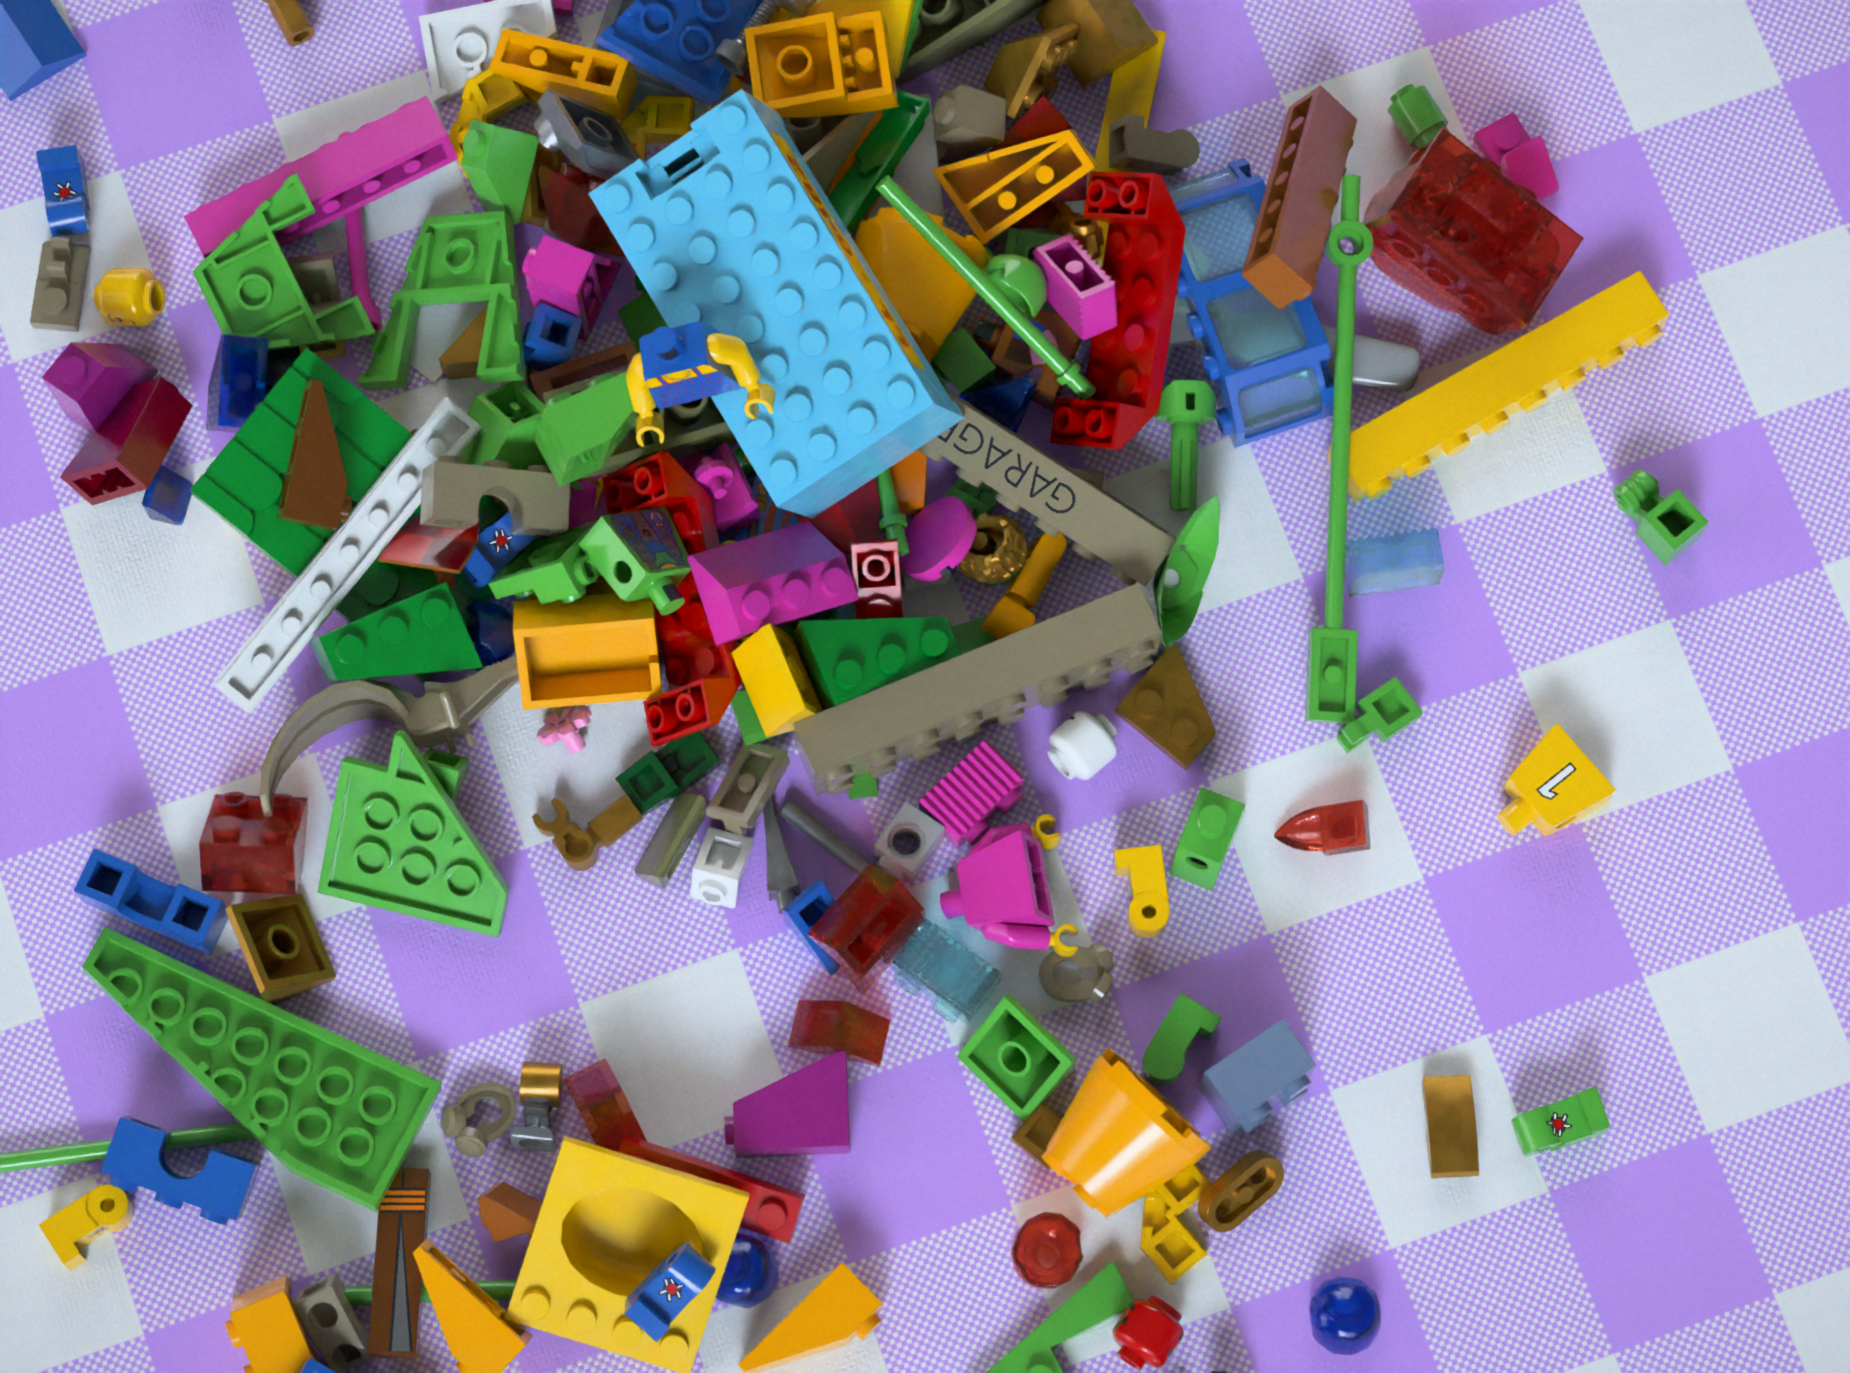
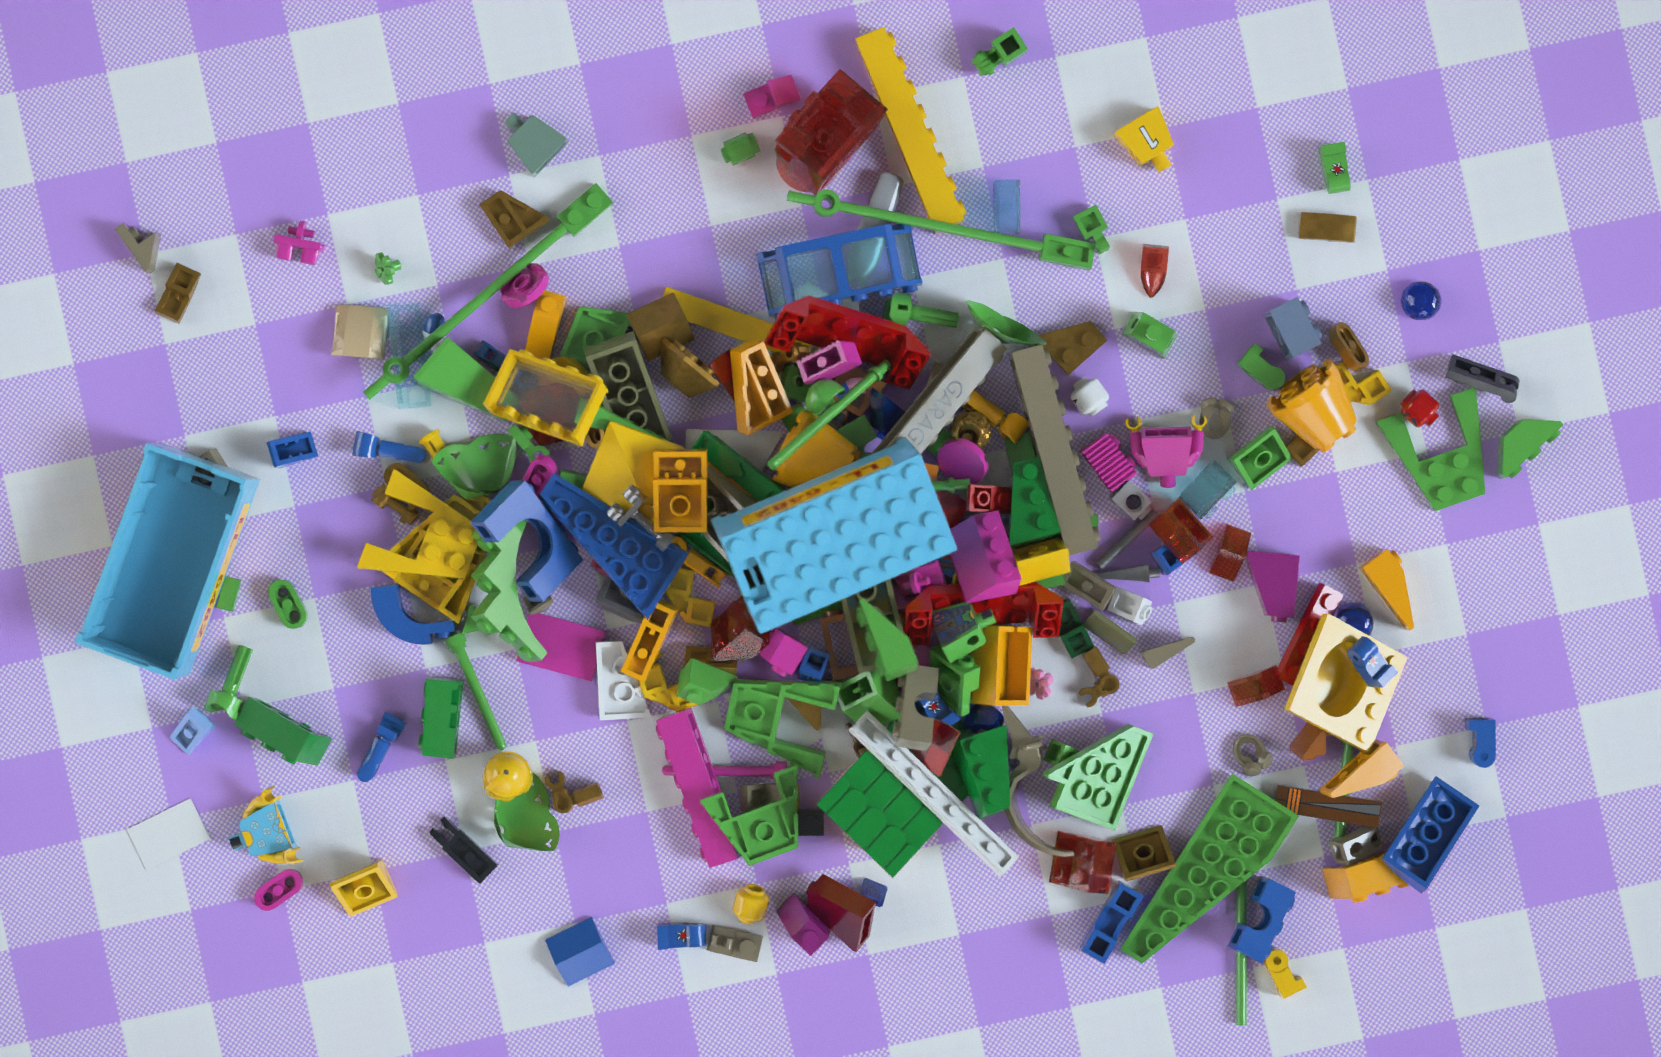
camera: 85 degrees left, 15 degrees up
(236, 382) = (819, 846): clear blue slope -> none
(315, 472) = (894, 807): reddish brown slope -> none
(539, 1092) = (1243, 720): leg -> none
(584, 135) = (697, 629): flat silver slope -> none
(640, 928) = (1160, 654): none -> dark tan slope
(688, 366) = (879, 587): torso -> none
(967, 123) = (716, 409): dark tan arch -> none
(1046, 1251) = (1368, 456): clear red hair -> none
(1148, 888) = (1182, 372): yellow leg -> none
(1150, 150) = (743, 299): dark tan leg -> none
(1300, 198) = (795, 226): dark orange brick -> none

